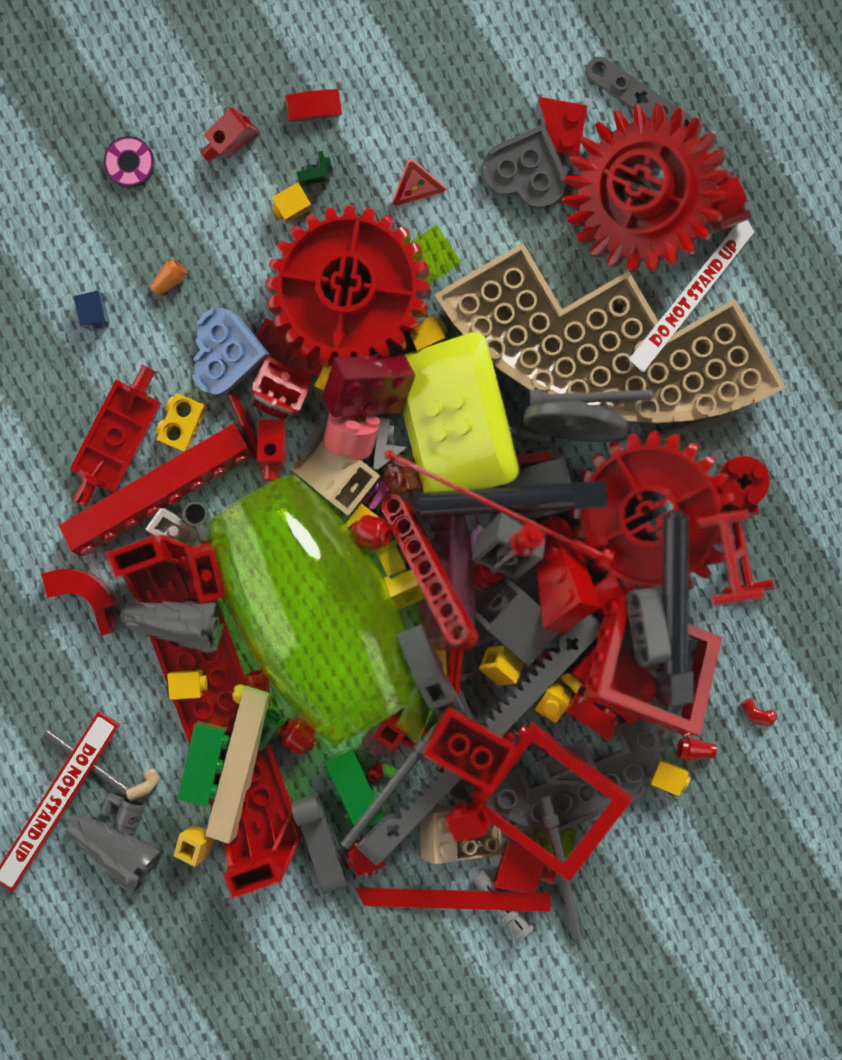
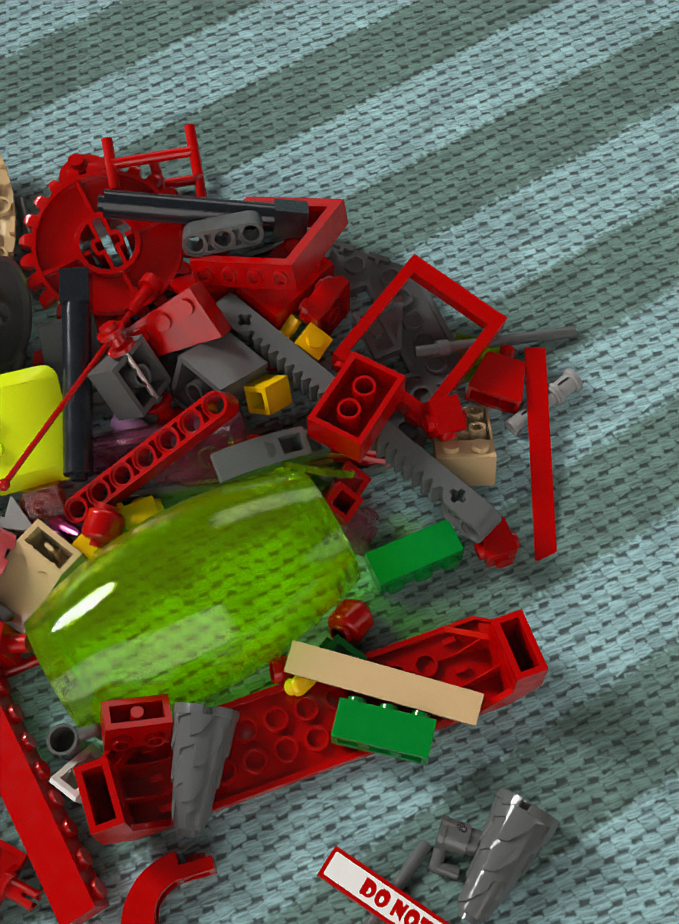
camera: 90 degrees left, 25 degrees down
(146, 787) = (419, 814): tan arm -> none
(186, 684) = (281, 751): yellow brick -> none
(193, 845) = (491, 746): yellow brick -> none
(320, 842) = (479, 595): dark grey beam -> none
(380, 771) = (393, 525): arm -> none
(386, 792) = (362, 471): dark grey bar -> none
(404, 589) = (172, 488): yellow brick -> none
(670, 777) = (395, 242): yellow brick -> none
(694, 749) = (365, 225): red cone -> none
(756, 716) = (331, 173): red arm -> none

